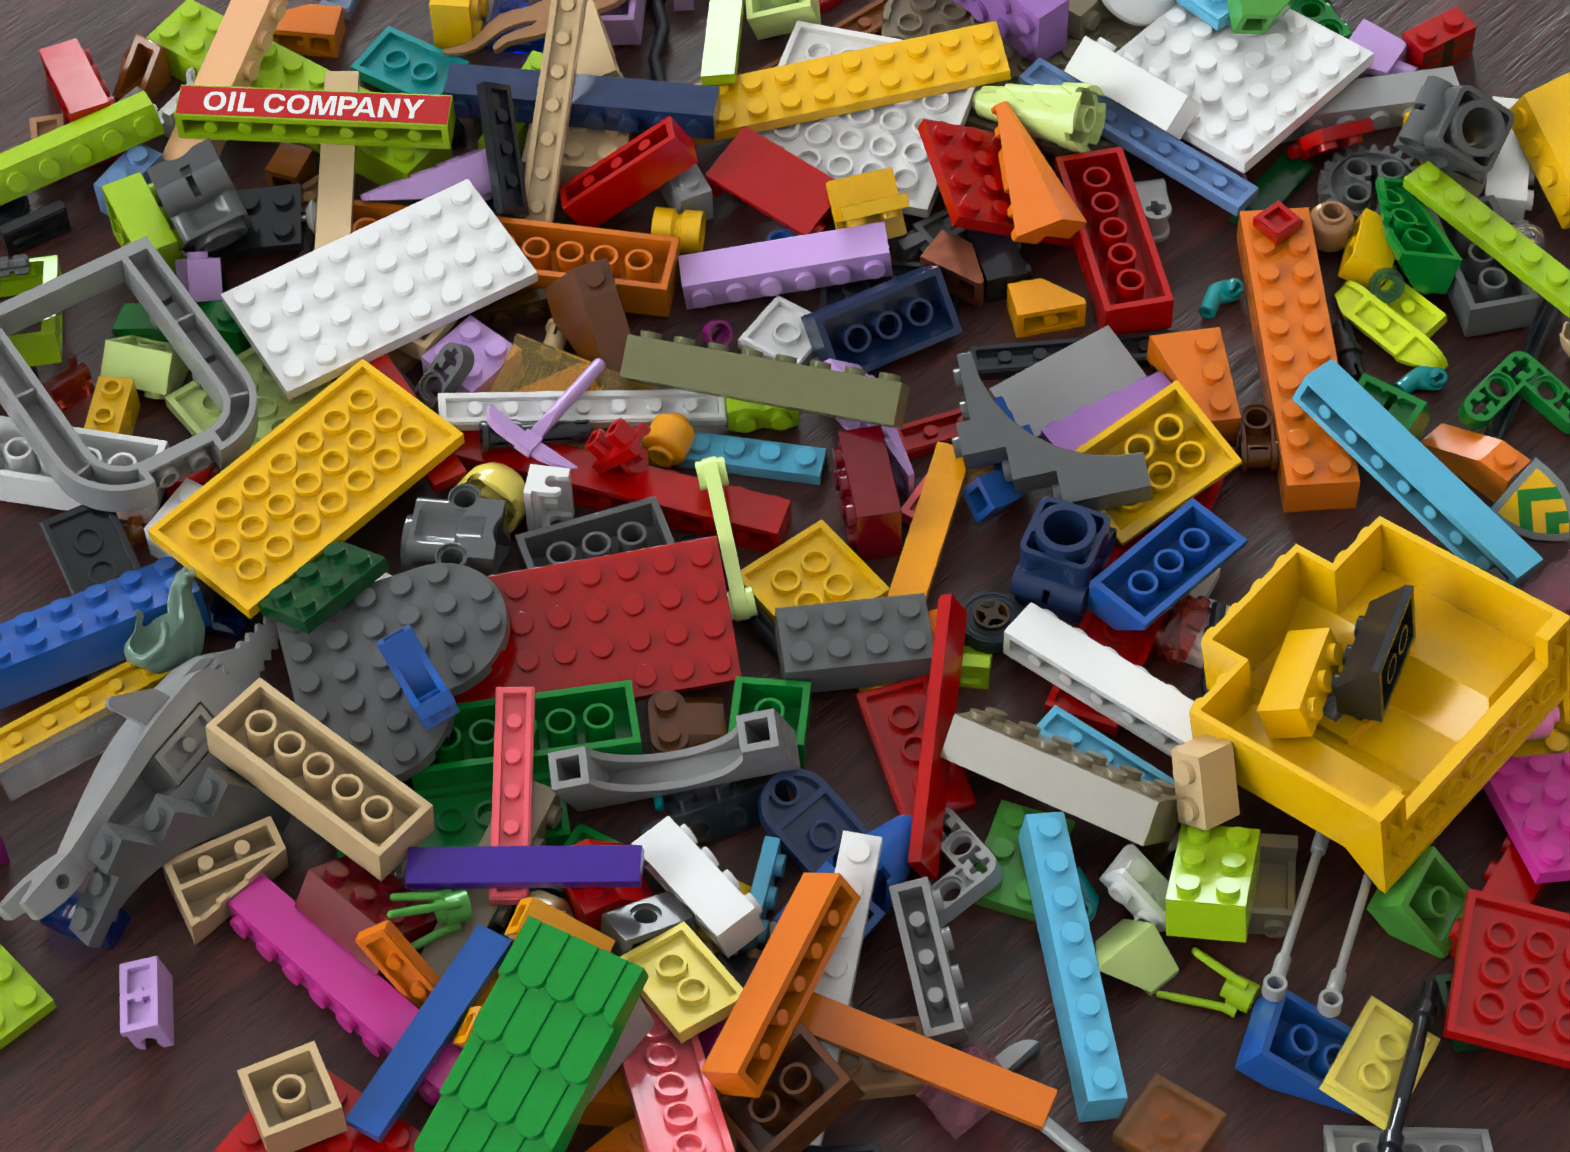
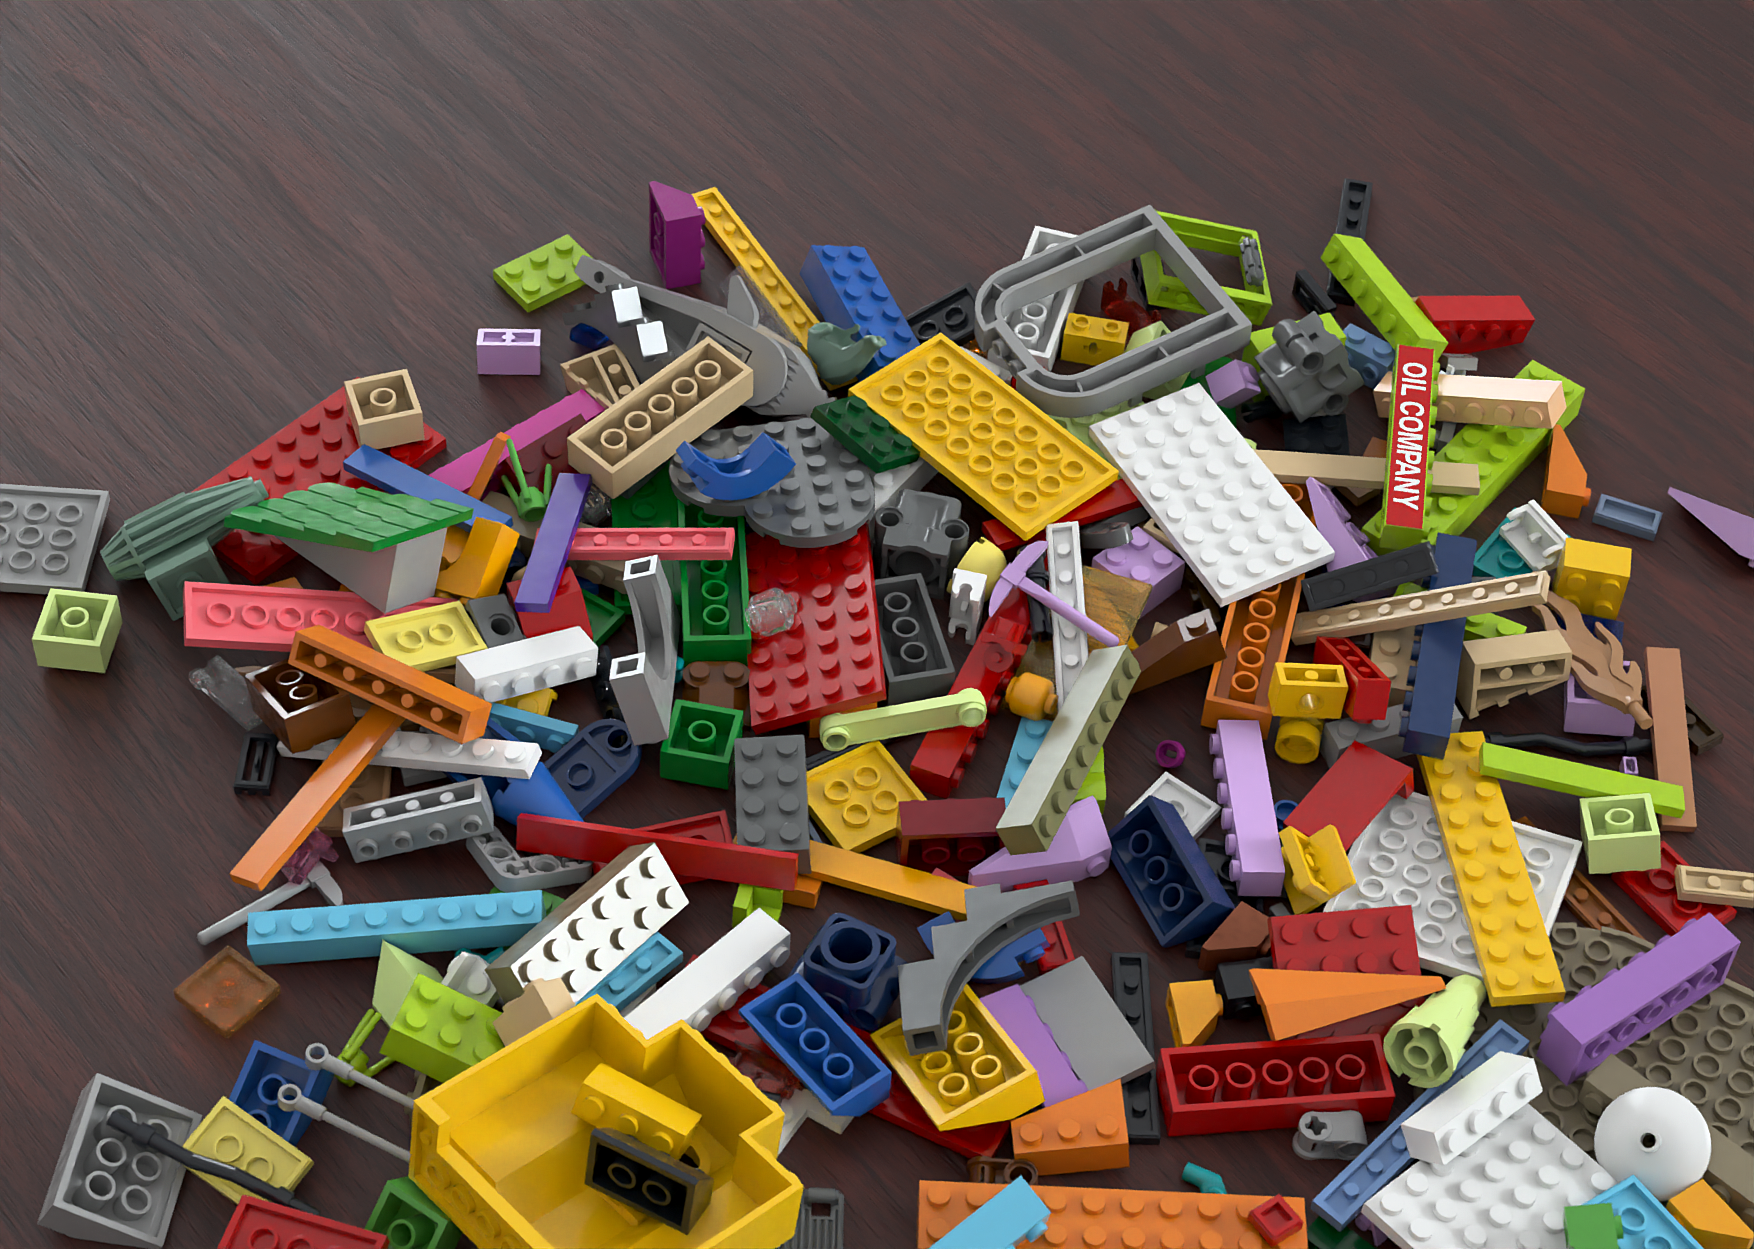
camera: 90 degrees right, 5 degrees down
(143, 66) = (1504, 364): dark orange slope -> none
(405, 43) = (1534, 536): none -> white hinge
(598, 657) = (770, 612): none -> clear head
(664, 196) = (1307, 690): none -> yellow brick
(985, 610) = (799, 915): black wheel -> none

